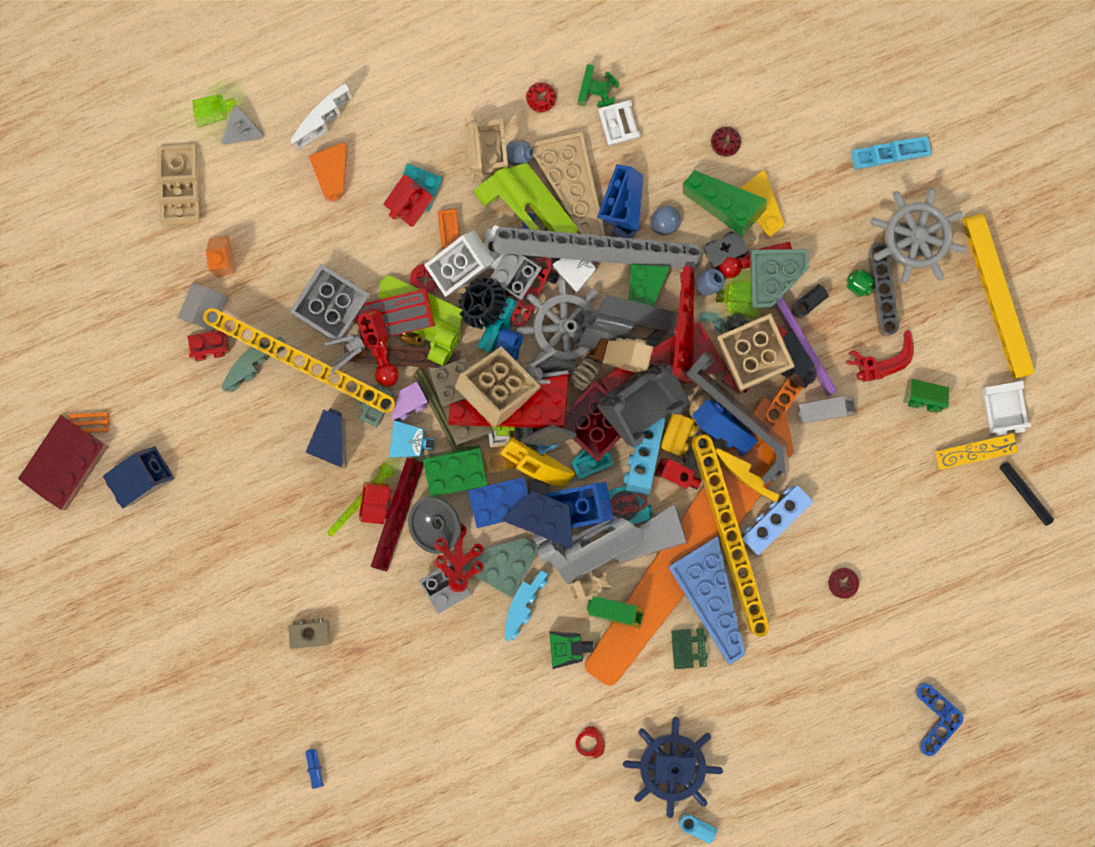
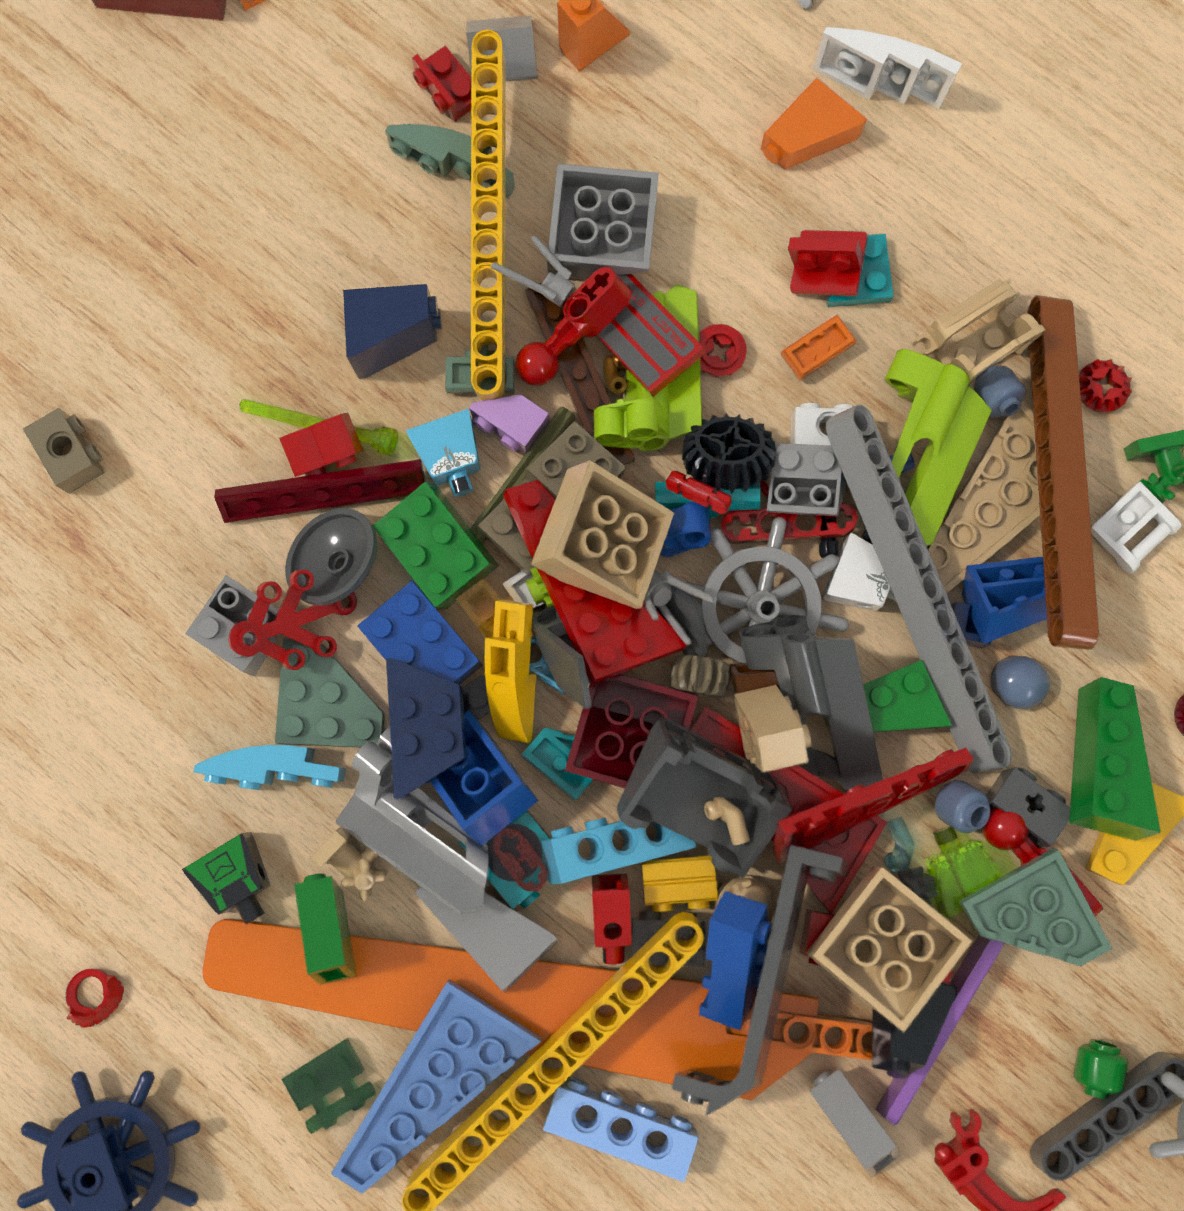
camera: 65 degrees right, 5 degrees down
(138, 476) = (193, 77): dark blue slope -> none
(459, 263) = (774, 383): white brick -> none
(496, 328) = (698, 492): none -> red axle
(573, 147) = (1062, 478): none -> dark orange beam
(659, 393) = (731, 815): none -> tan arm
(740, 470) = (672, 1026): yellow slope -> none
(810, 301) = (1021, 995): black piece -> none

